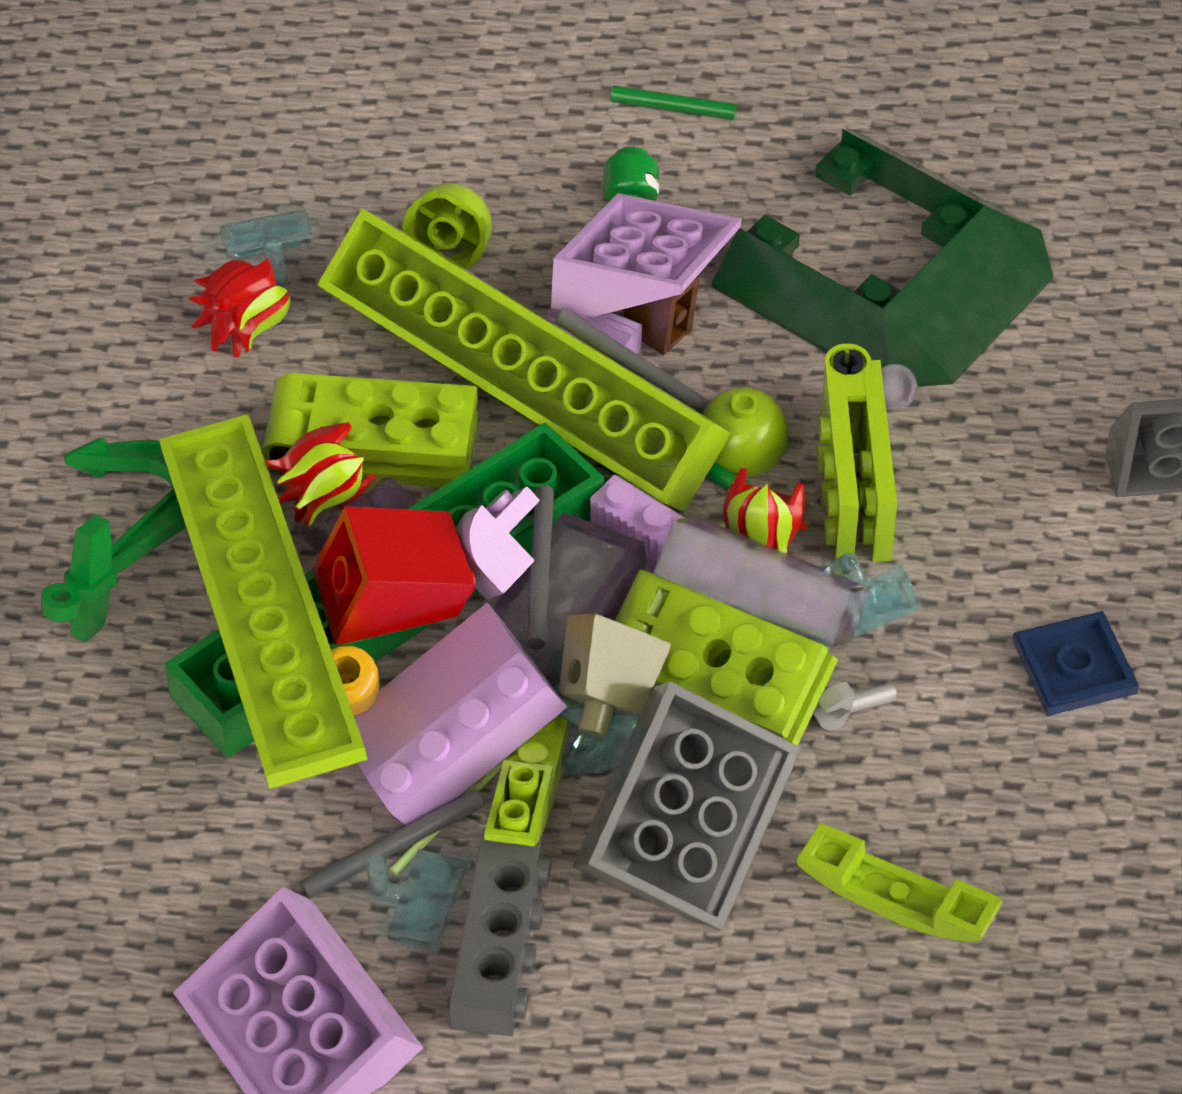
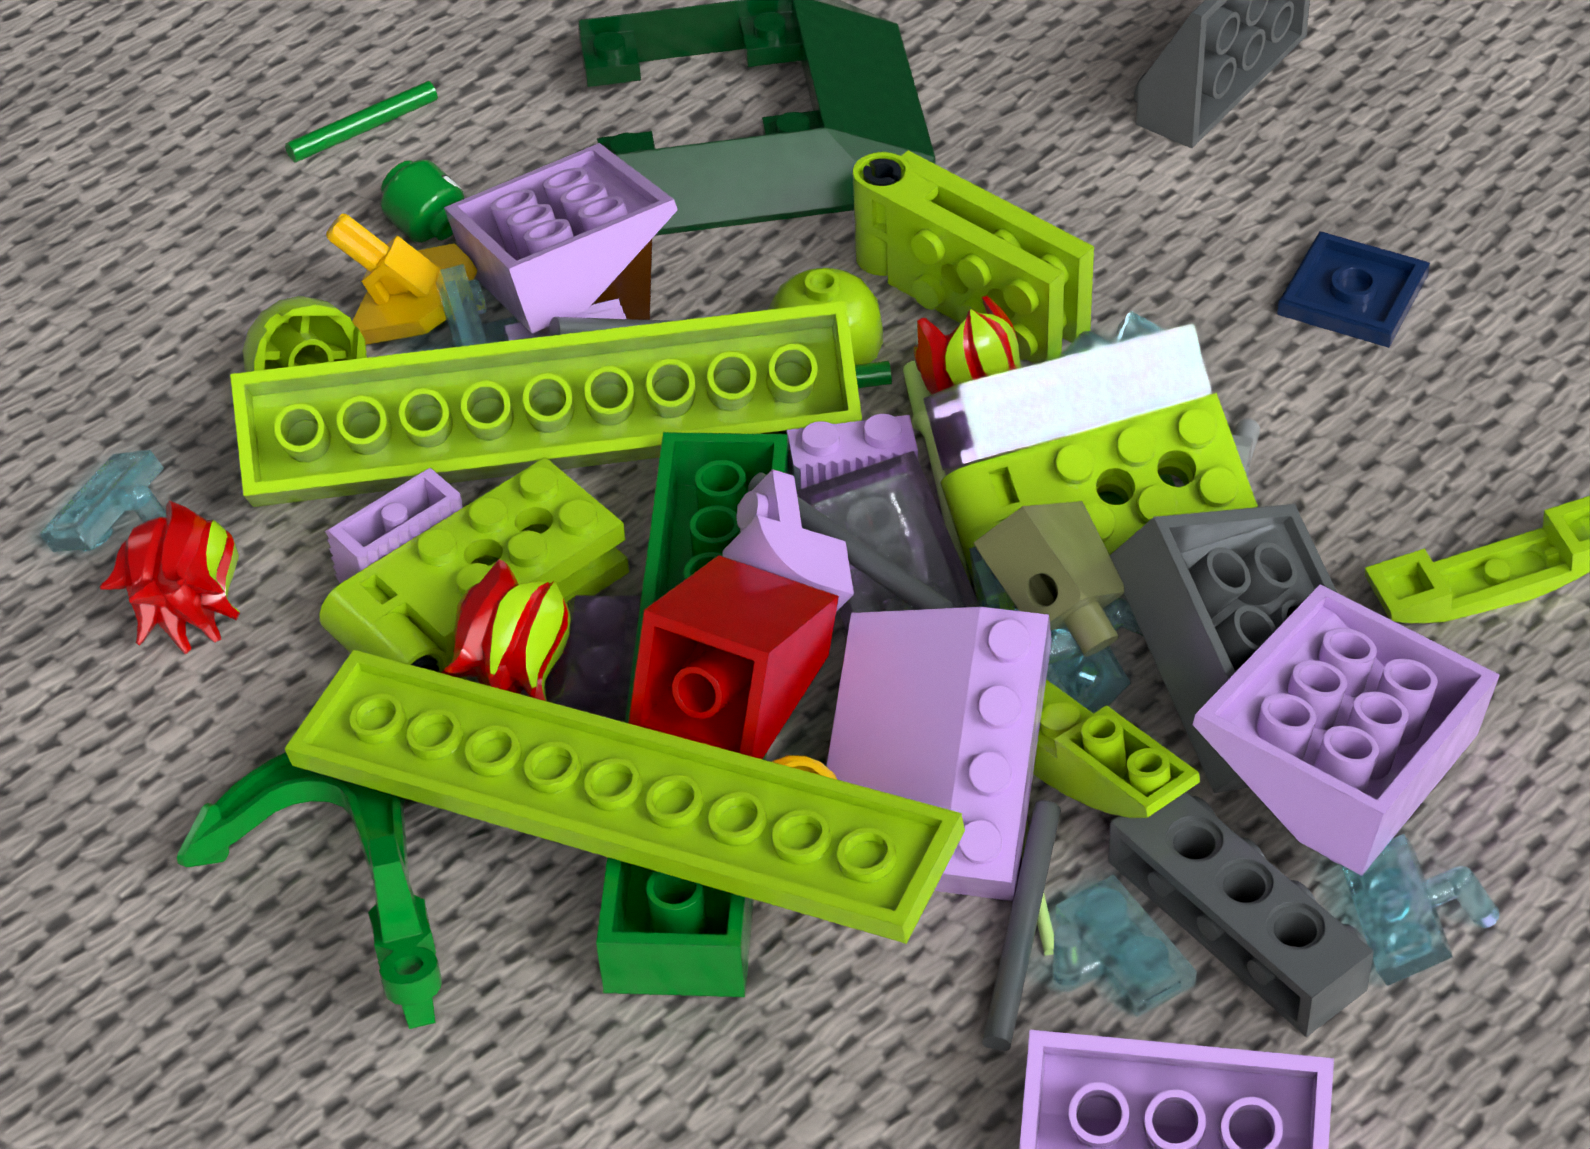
camera: 45 degrees left, 5 degrees down
(364, 359) = (390, 522): none -> lavender brick
(537, 282) = (462, 305): none -> clear light blue plate
(551, 220) = (398, 281): none -> yellow piece
(571, 1007) = (1401, 912): none -> clear light blue plate
(658, 887) = (1346, 724): none -> lavender slope

